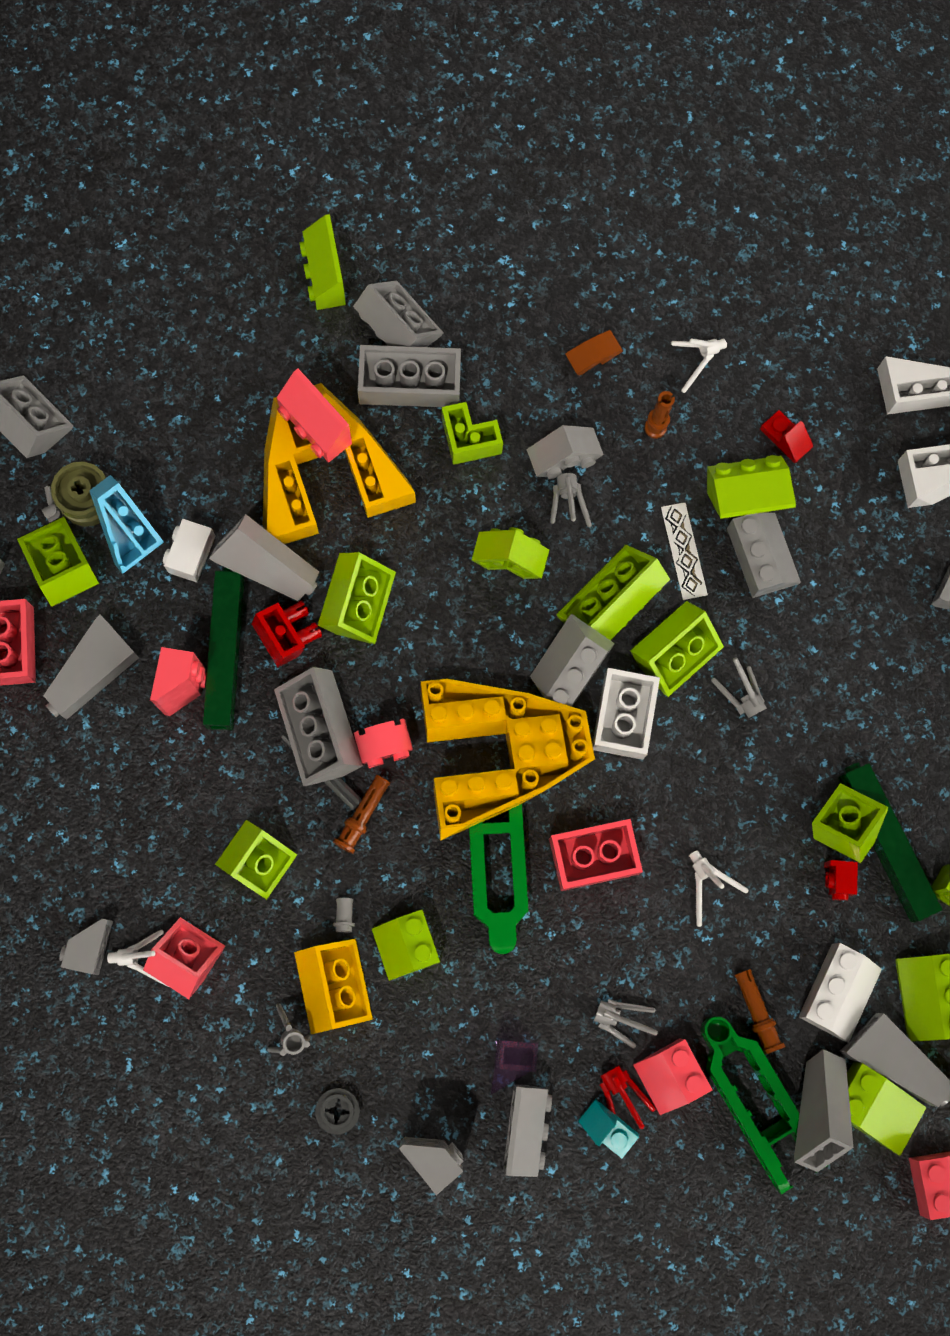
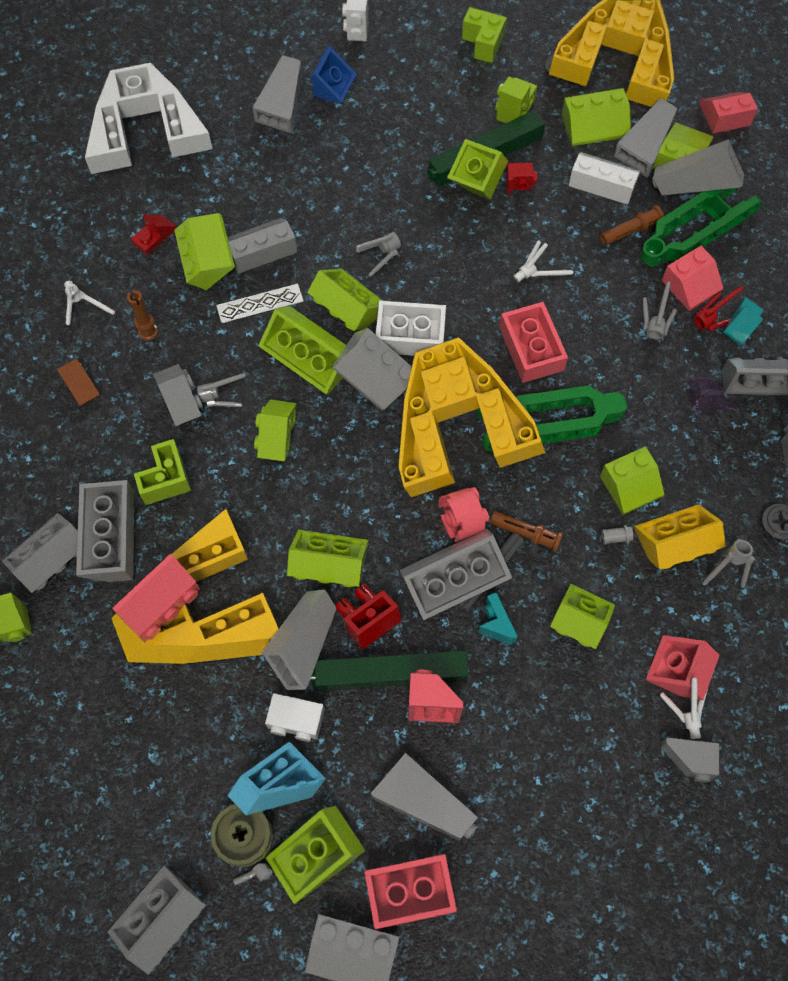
camera: 90 degrees left, 10 degrees down
(254, 769) = (500, 627): none -> teal slope

